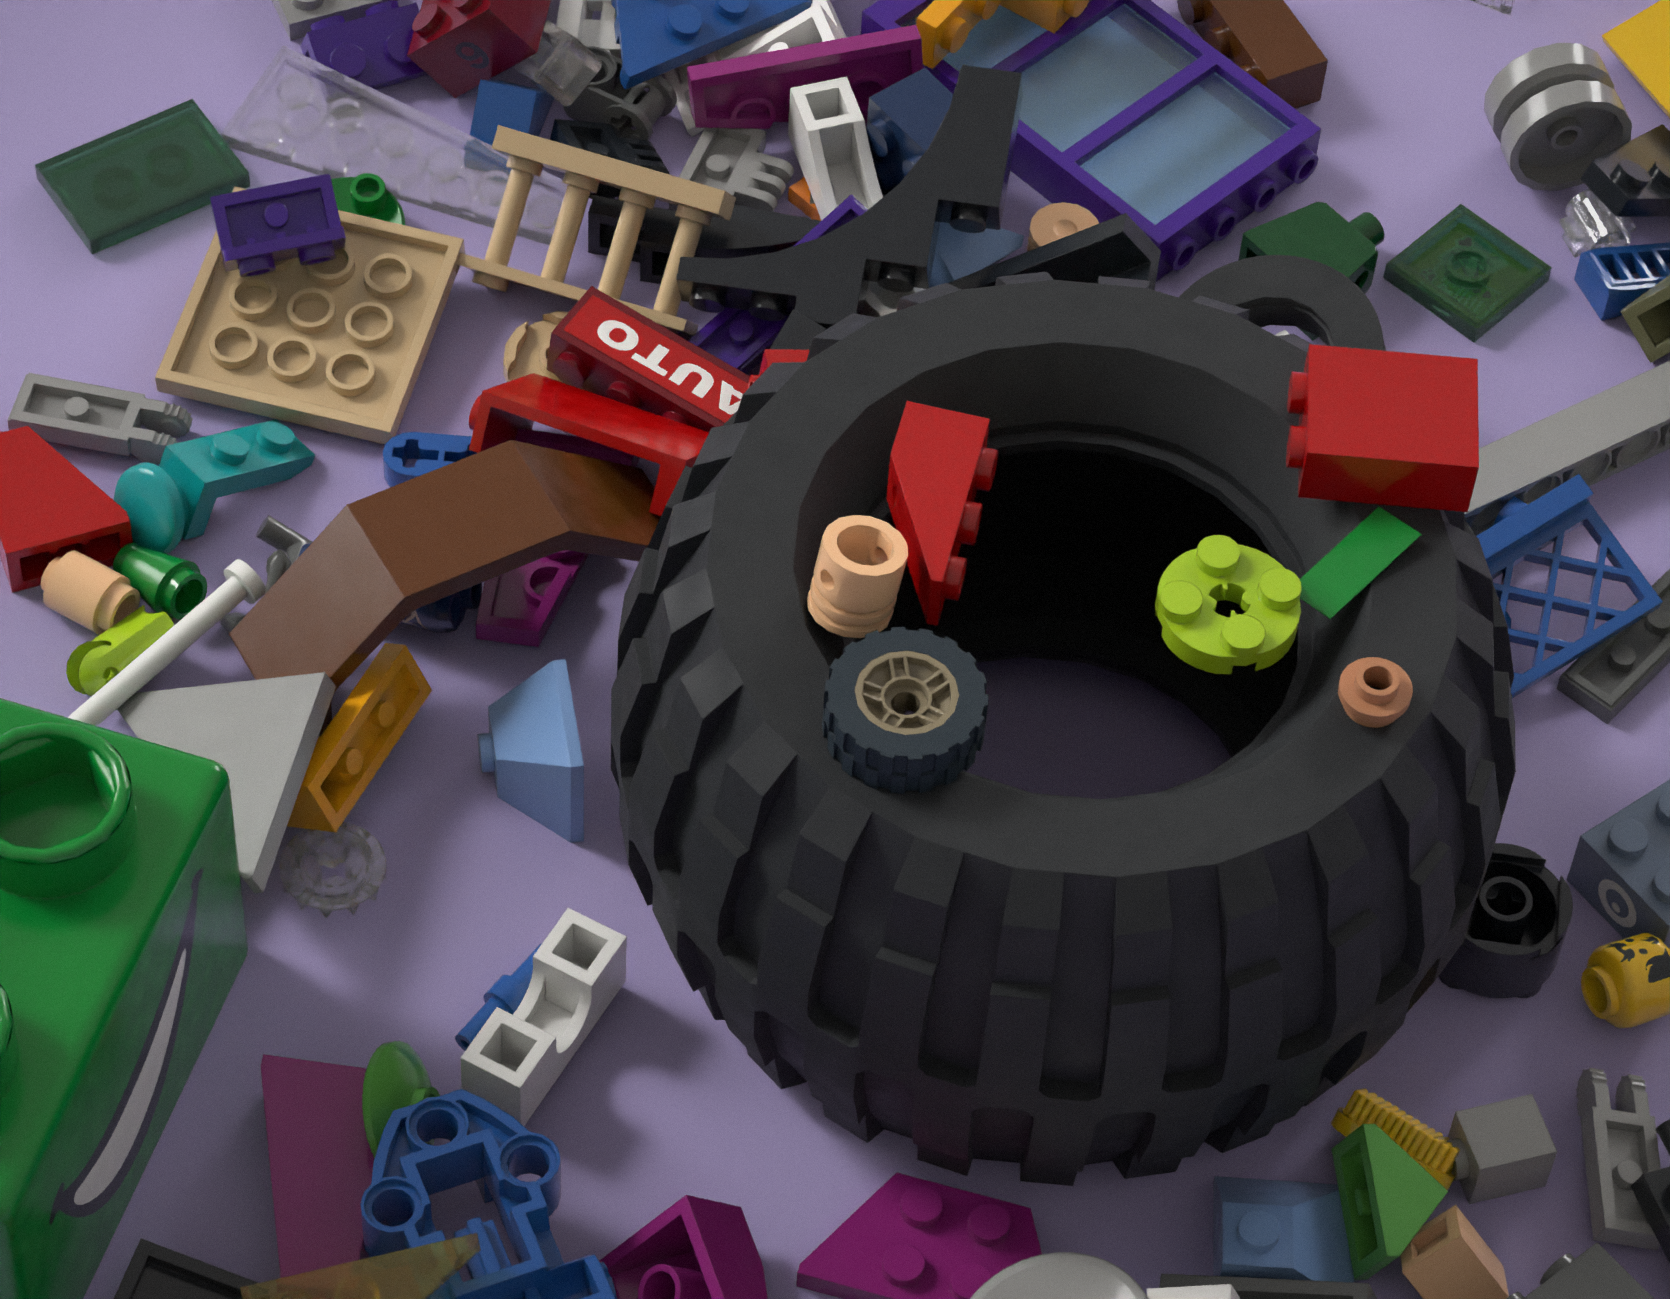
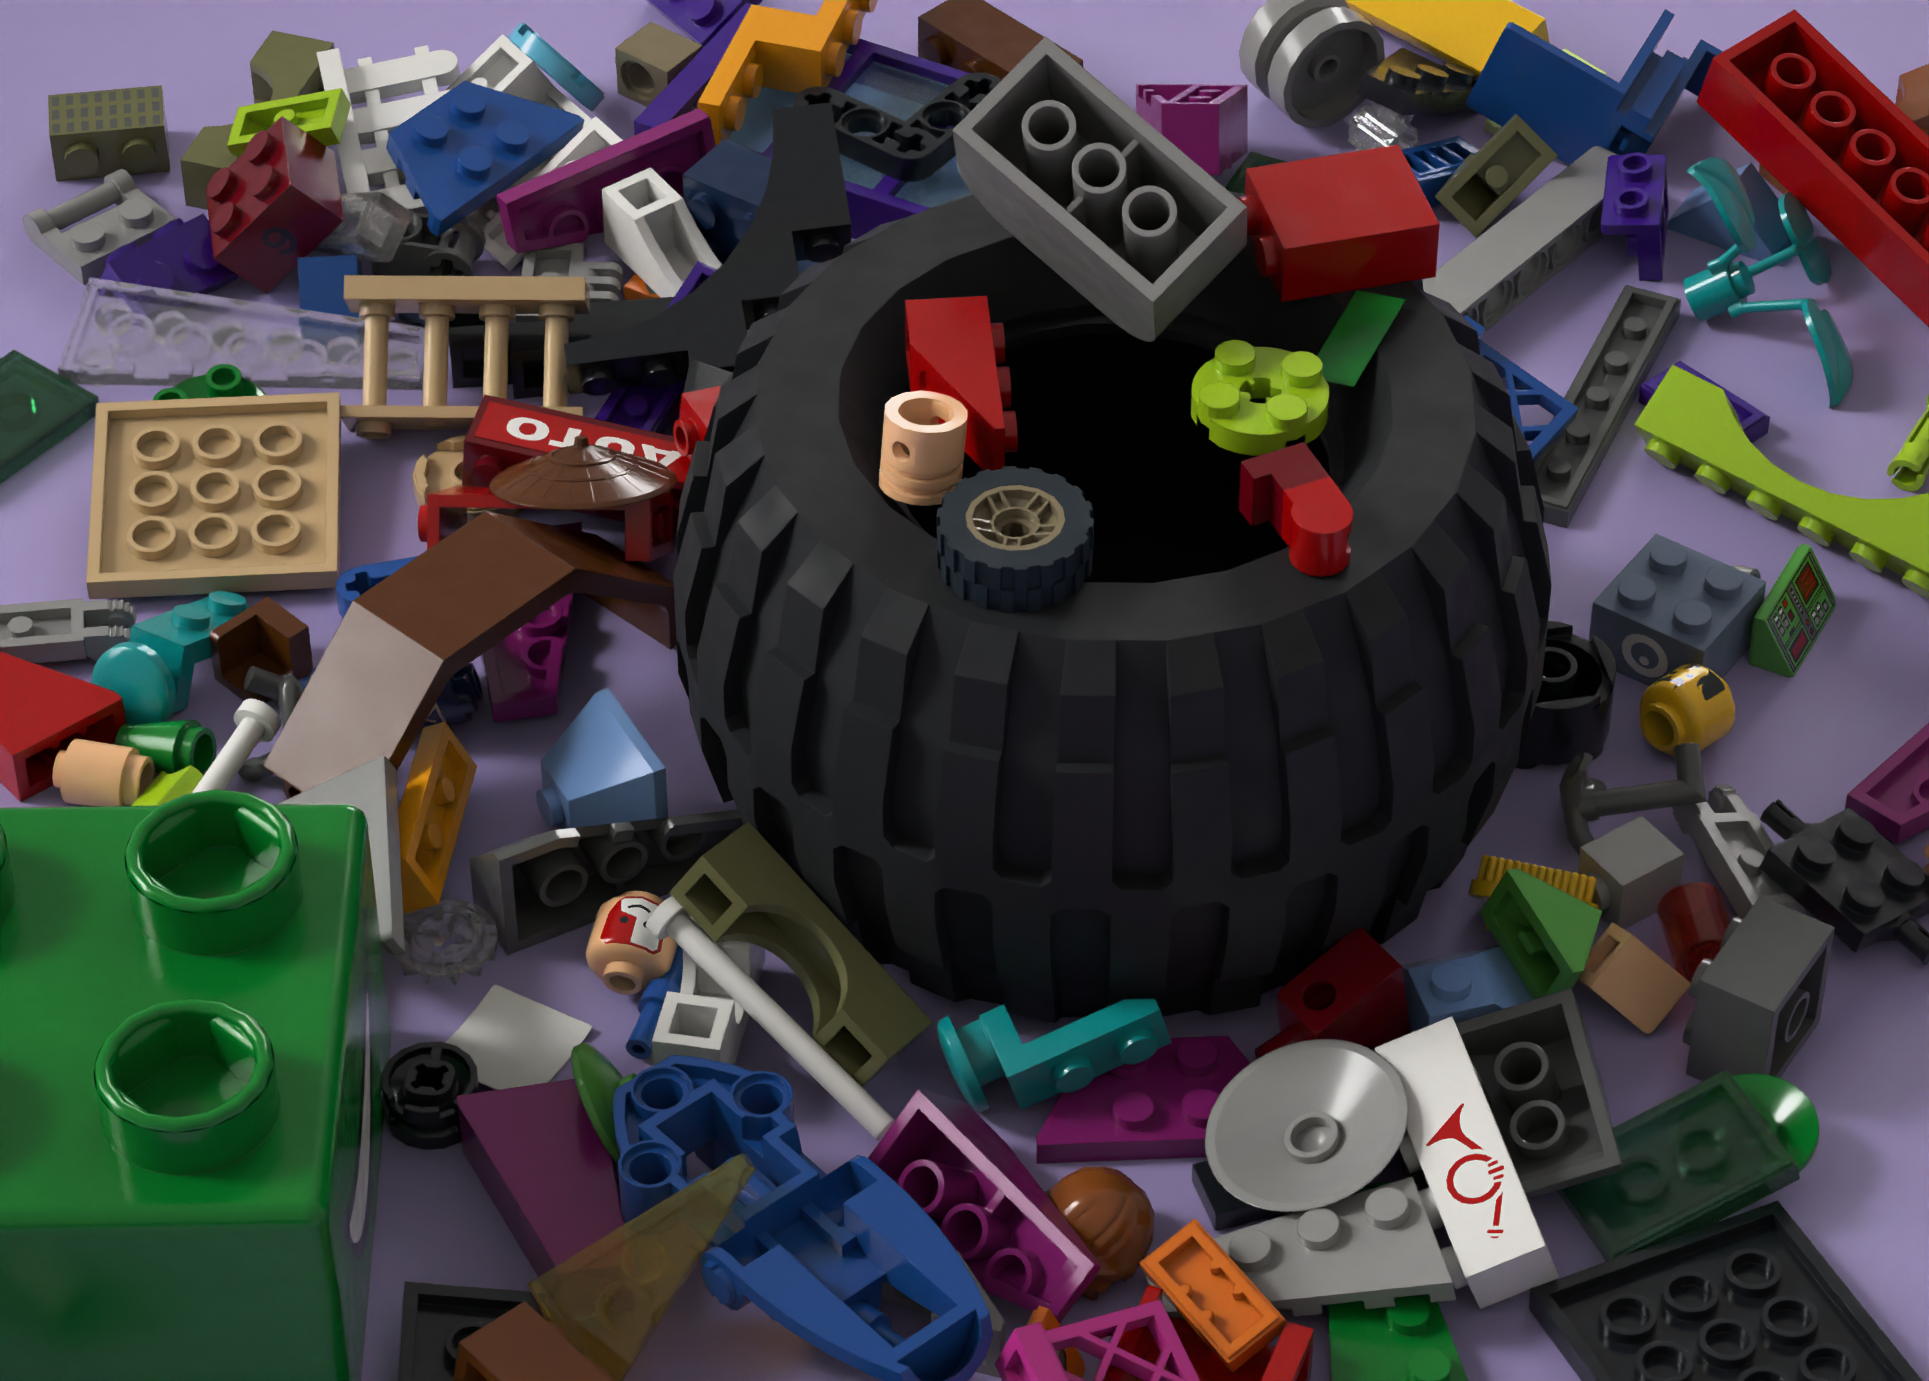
camera: 15 degrees left, 10 degrees down
(272, 1027) = (423, 1091): none -> black wheel
(278, 225) = (159, 417): dark purple bracket -> none
(288, 491) = (261, 638): none -> reddish brown panel
(353, 999) = (517, 1039): none -> white sticker
(483, 839) = (565, 875): none -> dark grey wedge
(502, 928) = (624, 946): none -> light nougat head
(529, 935) = (673, 921): none -> white bar
(633, 416) = (582, 479): none -> reddish brown hat
(678, 1077) = (755, 897): none -> olive arch
(845, 1196) = (1054, 1062): none -> teal piece
(1123, 105) = (902, 148): none -> black beam
(1138, 337) = (1098, 192): none -> light grey brick
(1144, 1222) = (1344, 995): none -> dark red torso
(1210, 759) = (1301, 505): none -> leg
(1372, 706) = (1423, 425): nougat plate -> none
(1405, 172) = (1200, 120): none -> magenta wedge
(1488, 1054) = (1589, 799): none -> dark grey piece
(1540, 1231) = (1692, 924): none -> clear red brick

